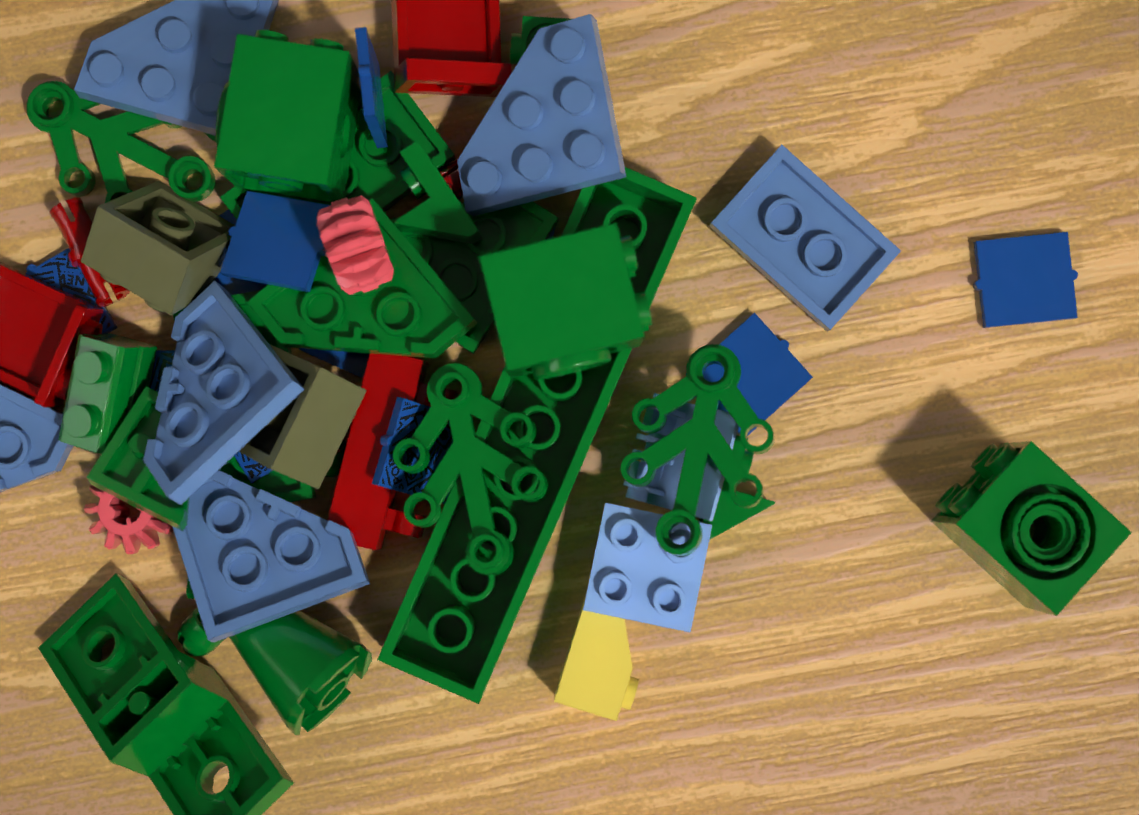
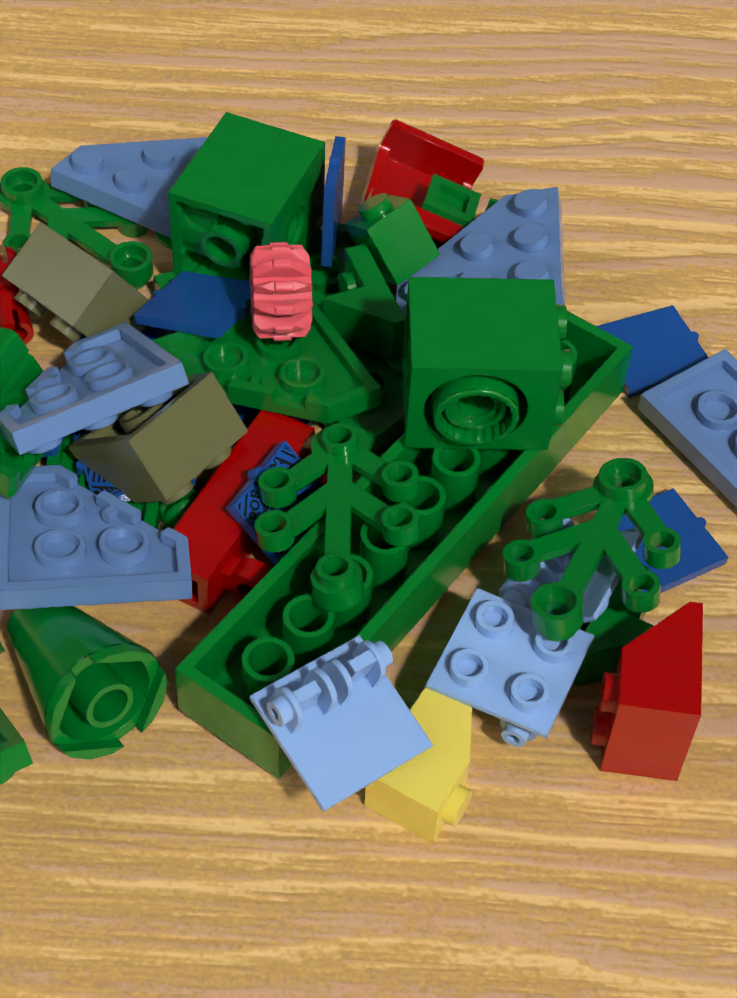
camera: 10 degrees right, 35 degrees down
(440, 121) = (393, 236): none -> green brick
(483, 33) = (451, 200): none -> green plate
(524, 678) = (341, 721): none -> light blue hinge
(710, 145) = (660, 347): none -> blue piece
(771, 570) = (653, 699): none -> red slope

